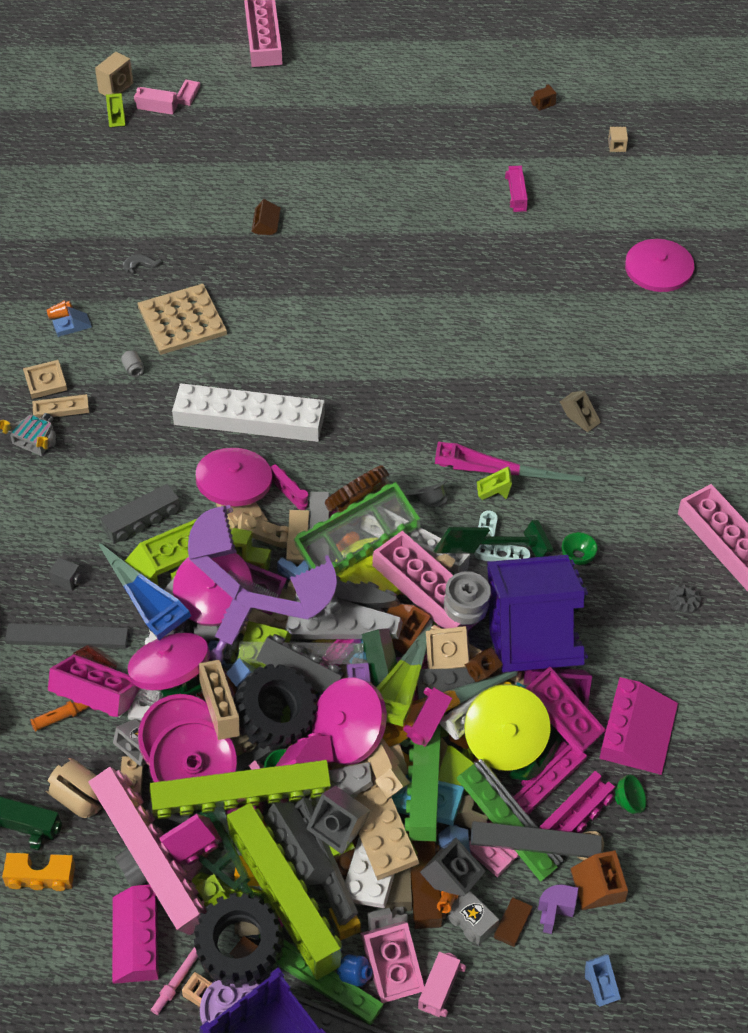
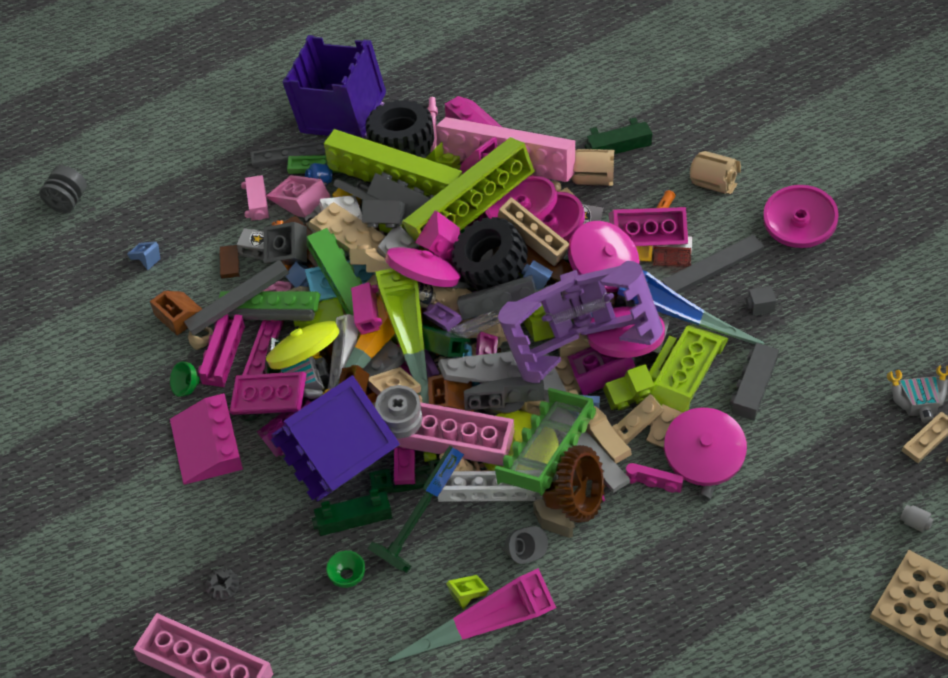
camera: 150 degrees right, 0 degrees up
(55, 875) = (585, 114): light orange arch -> none
(248, 412) = (757, 529): white brick -> none
(487, 556) = (434, 533): light aqua beam -> none
(556, 900) = (204, 284): medium lavender brick -> none

